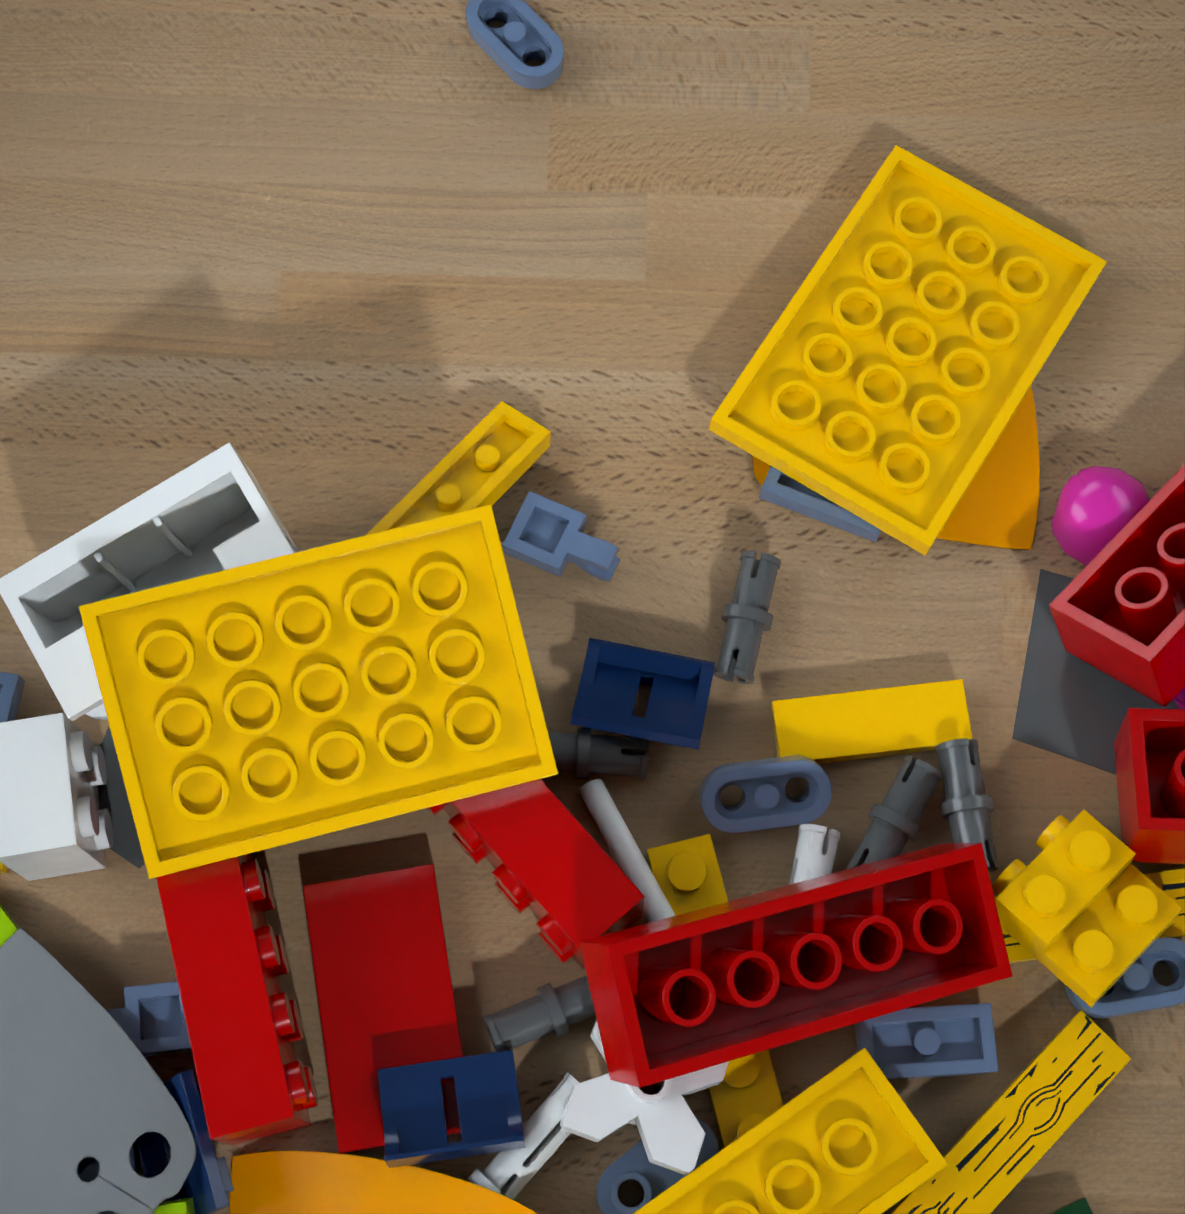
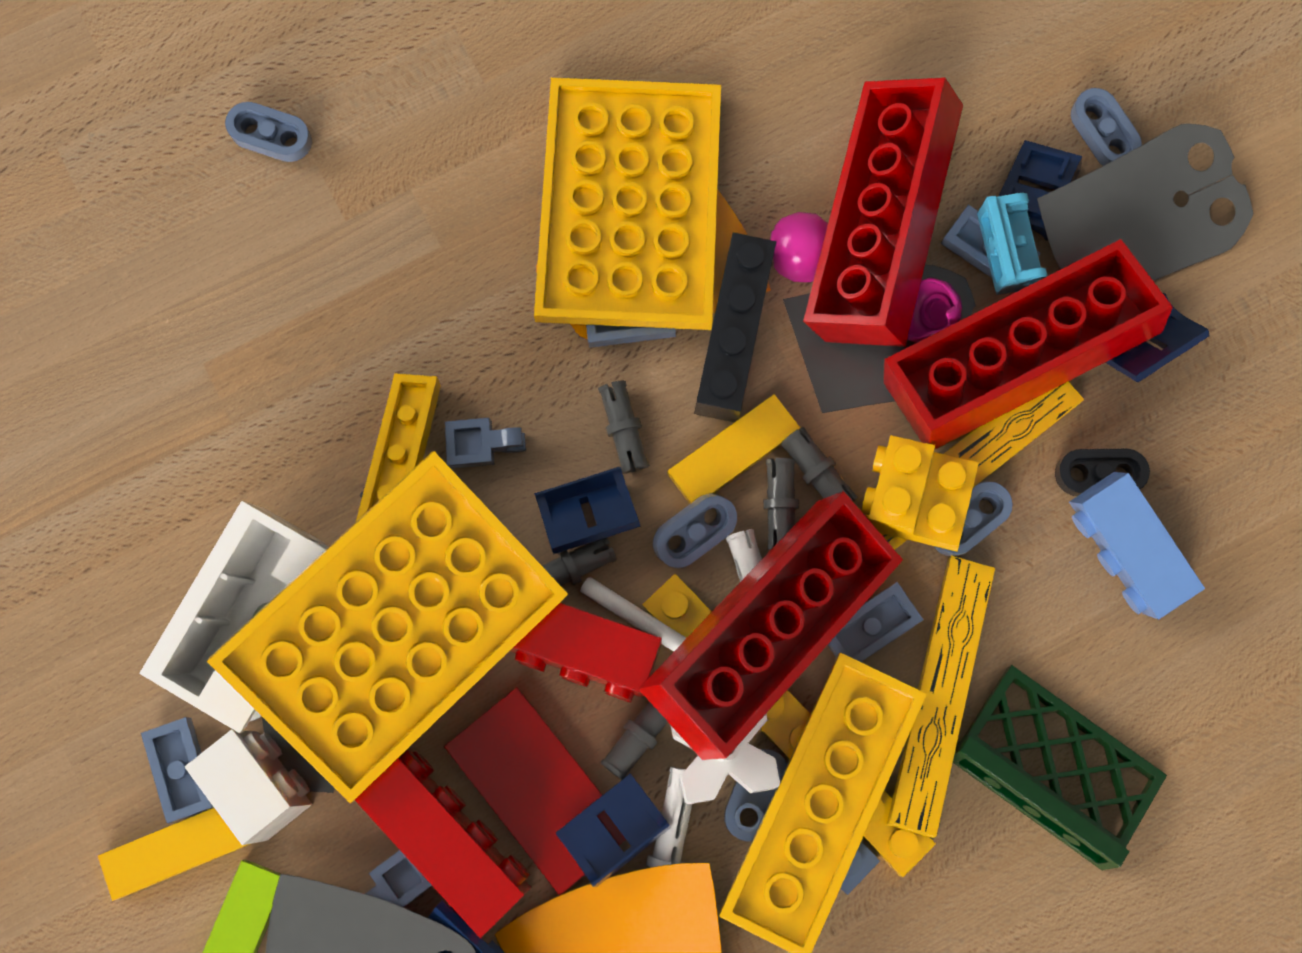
camera: 30 degrees left, 5 degrees up
(956, 568) = (735, 327): none -> black brick

